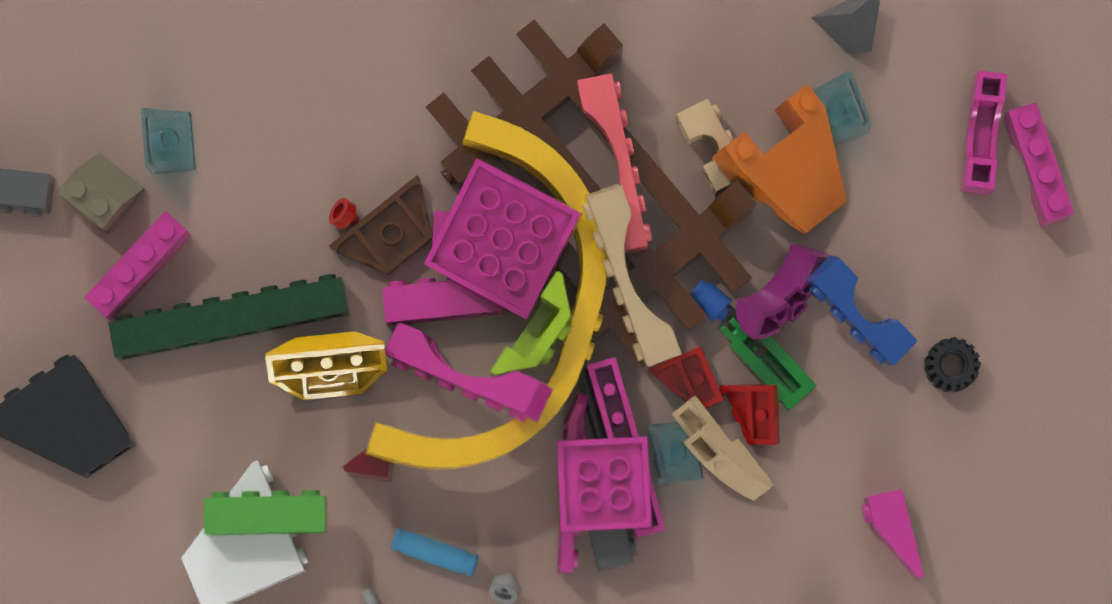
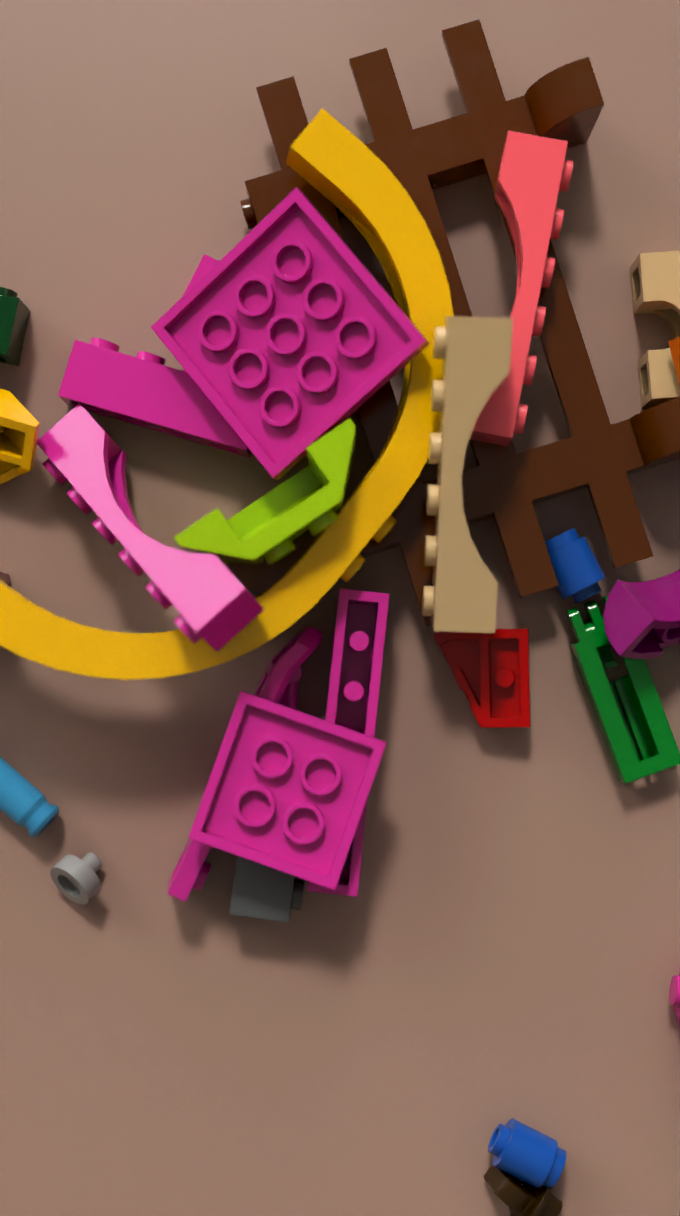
camera: 25 degrees right, 5 degrees up
(343, 214) = (68, 207): red tile -> none
(389, 232) = (126, 261): reddish brown wing -> none
(592, 409) = (323, 654): dark grey bar -> none
(671, 457) = (421, 777): clear light blue slope -> none
(723, 458) = (485, 802): tan slope -> none
(755, 411) = (571, 763): red wing -> none

